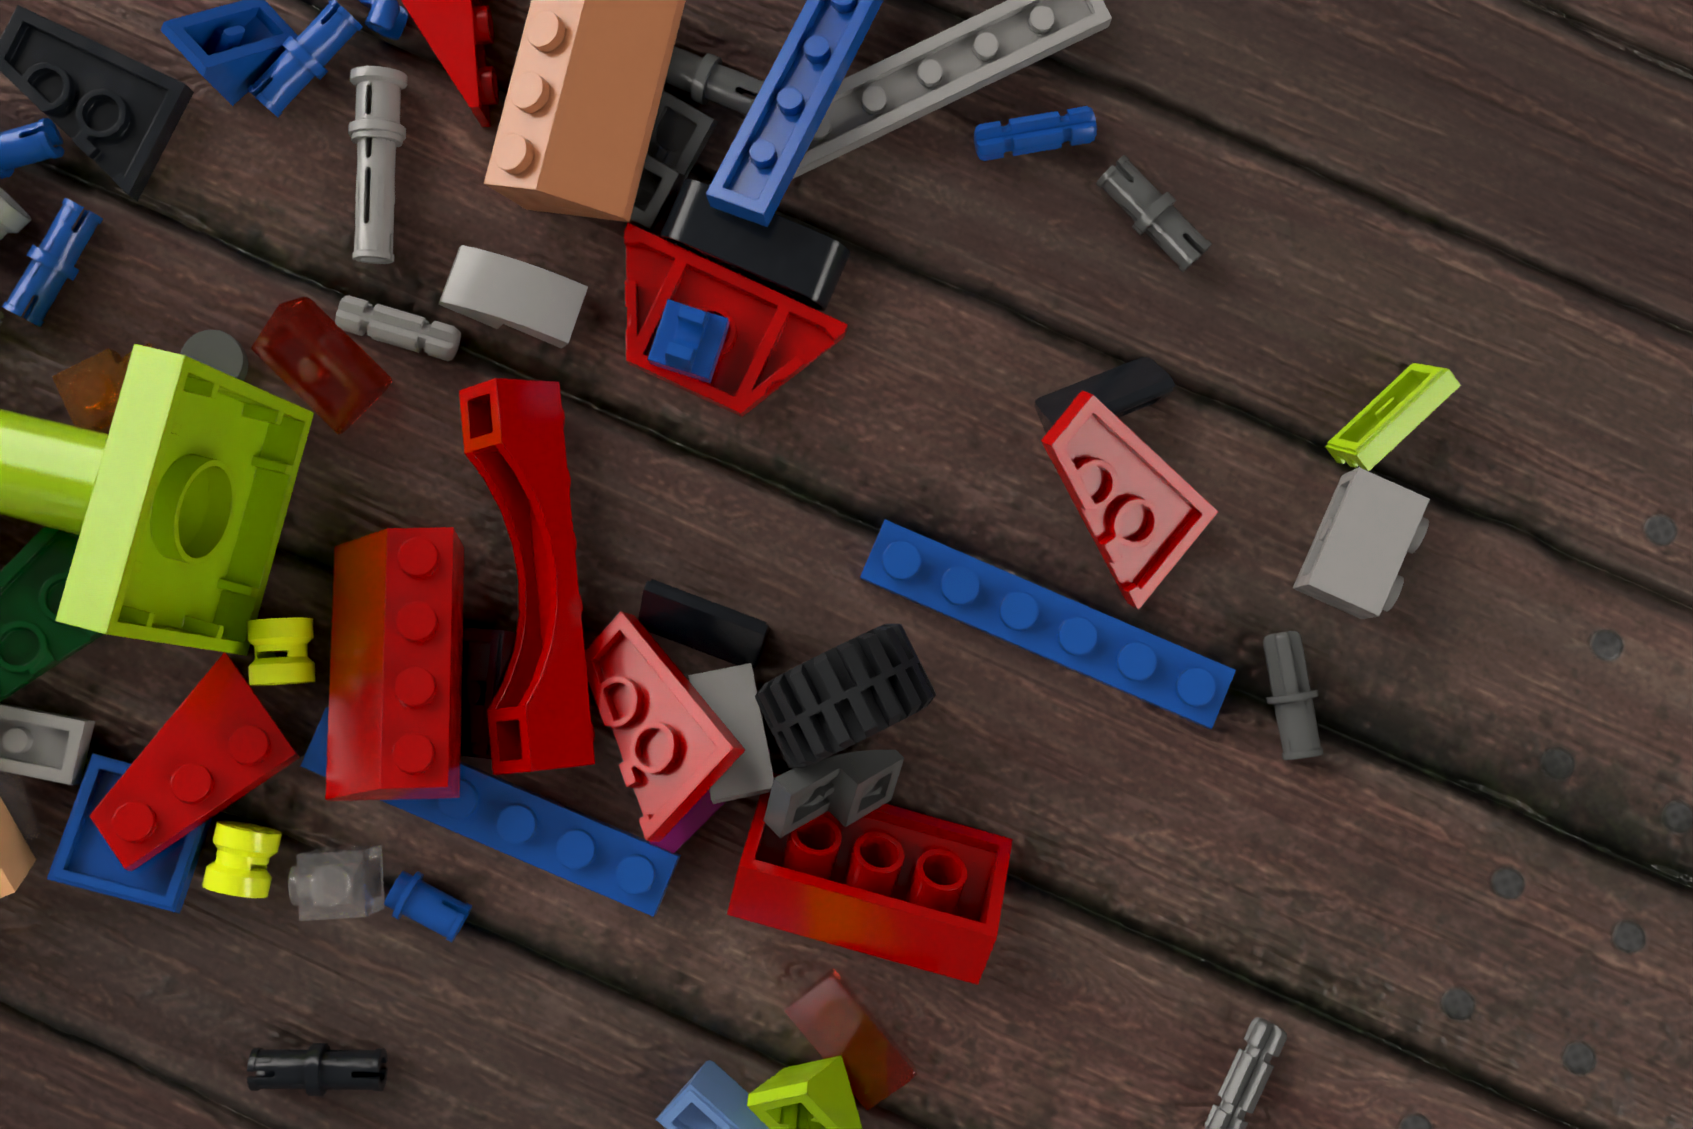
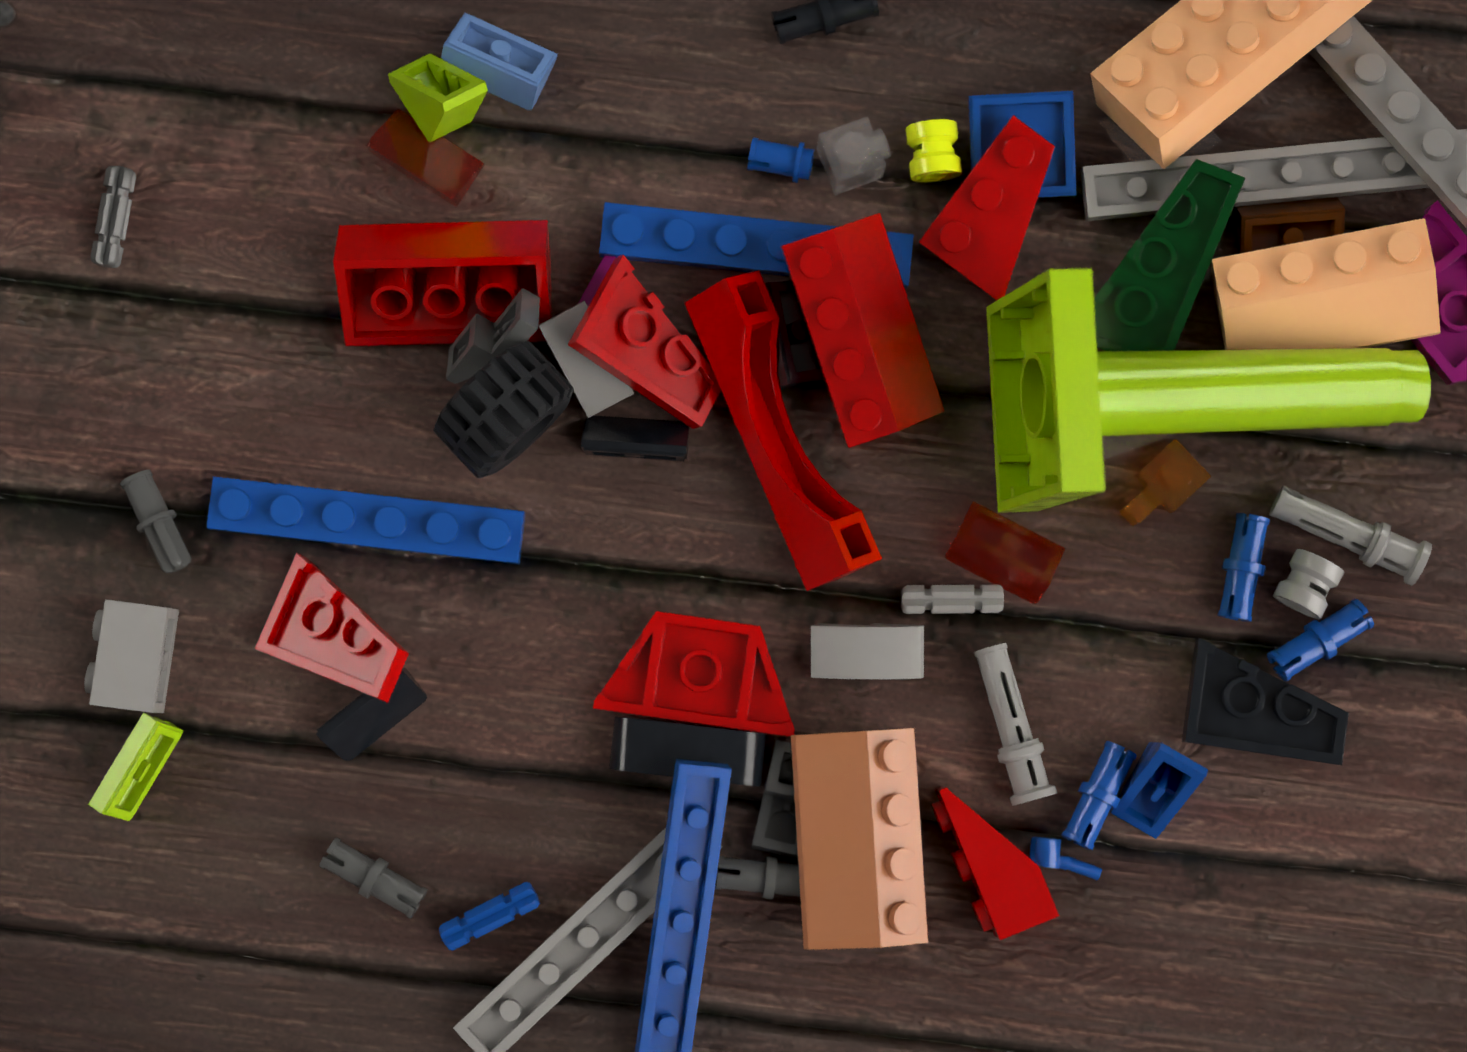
camera: 165 degrees right, 0 degrees up
(218, 351) = (1090, 527): dark grey tile -> none
(280, 636) = (962, 326): neon yellow wheel -> none
(689, 341) = (713, 653): blue tile -> none

